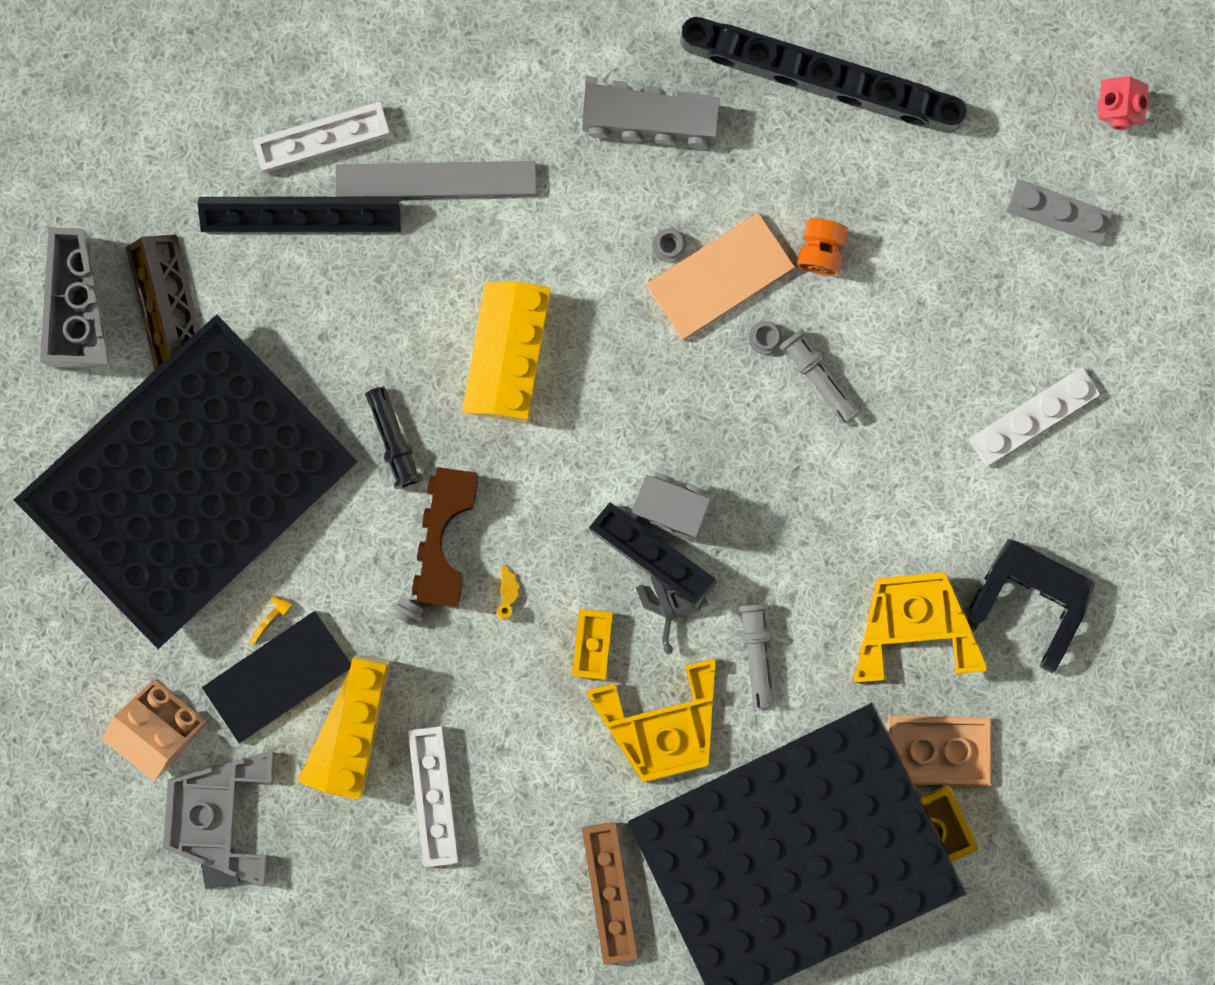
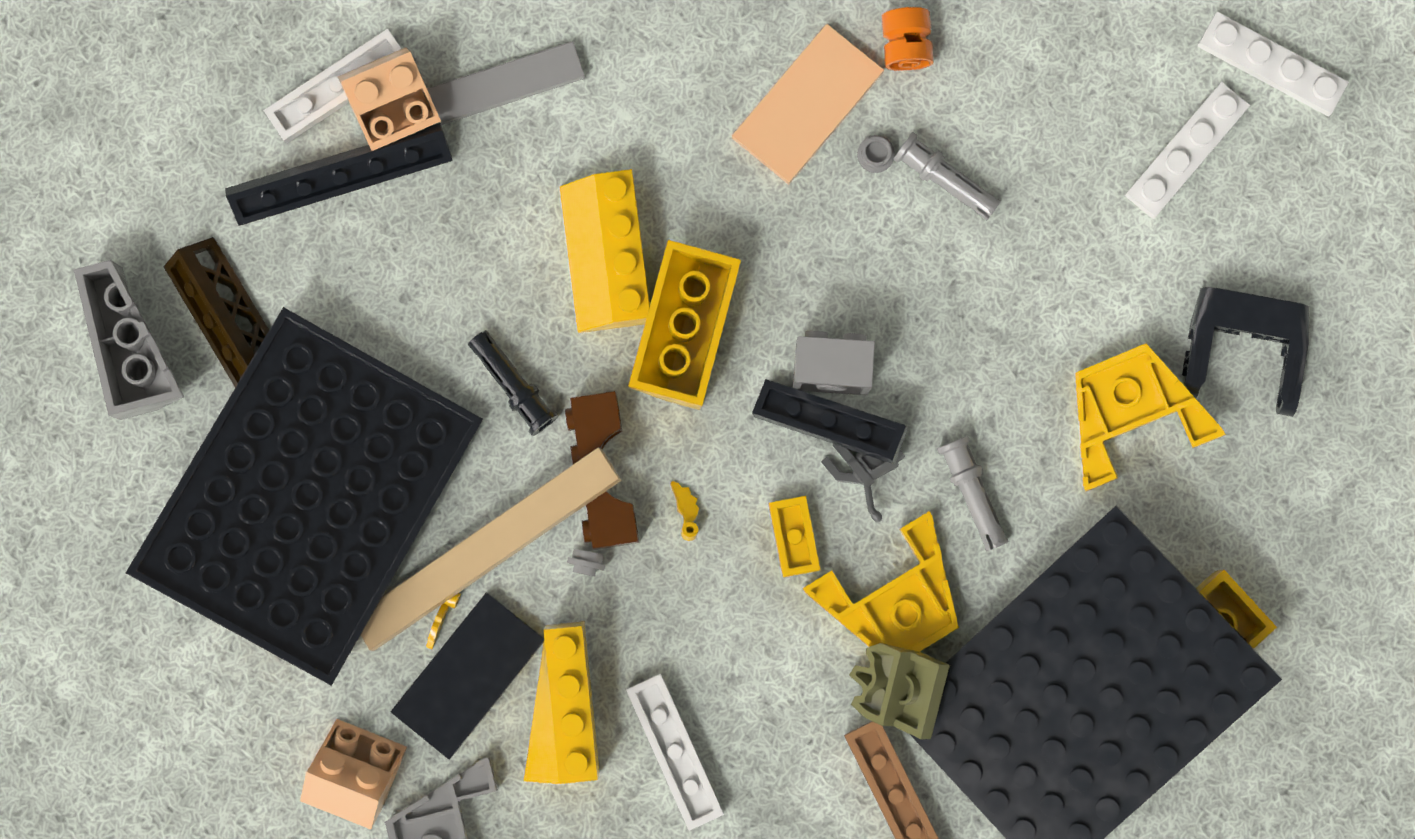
camera: 10 degrees left, 0 degrees up
(329, 573) = (489, 547): none -> tan tile
(362, 162) = (389, 98): none -> light nougat slope
(553, 433) = (684, 324): none -> yellow slope
(641, 802) = (900, 689): none -> olive plate
(675, 236) = (749, 77): light grey plate -> none
(944, 749) = (1205, 531): light nougat tile -> none
(1132, 364) = (1273, 64): none -> white plate

